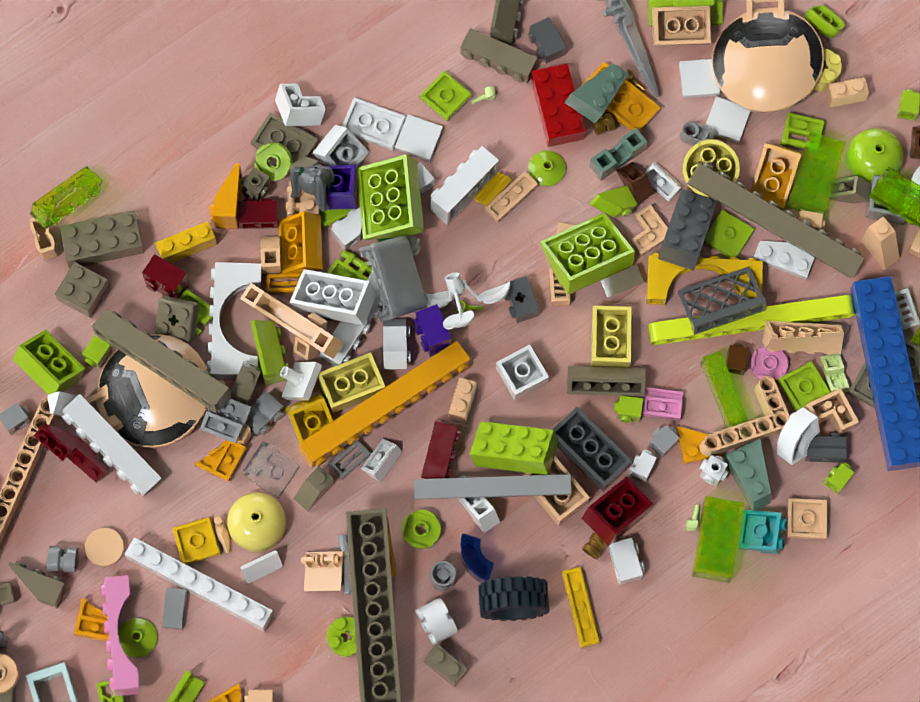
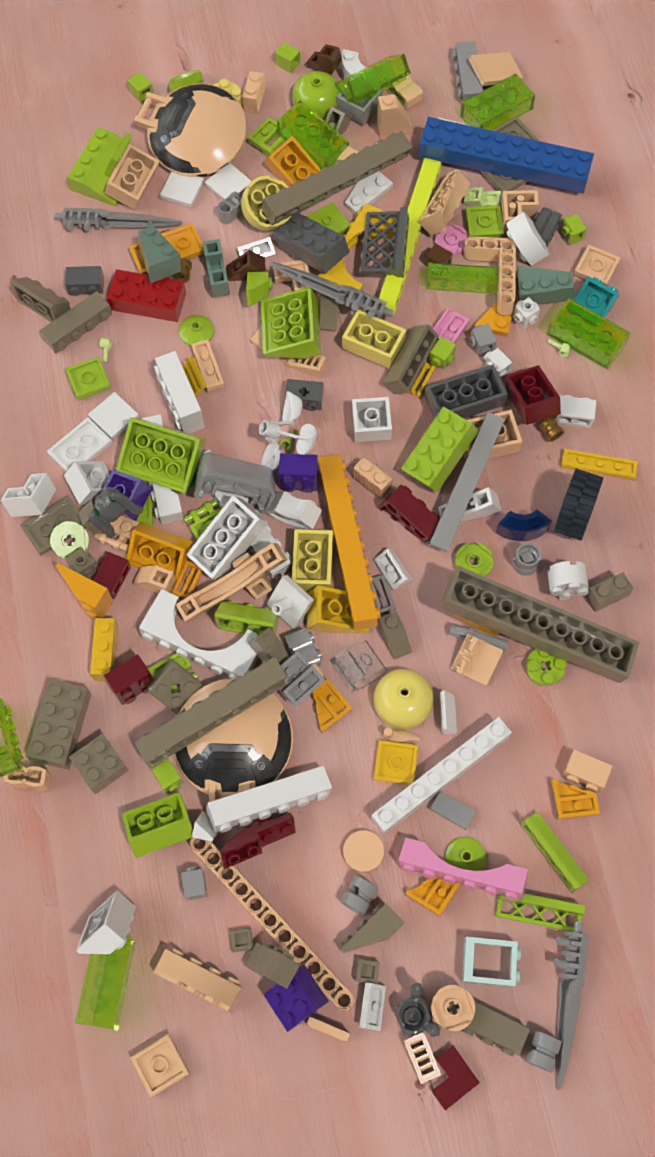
camera: 60 degrees left, 5 degrees down
(593, 406) = (425, 367): none -> yellow tile
(641, 281) = (342, 293): none -> light grey piece

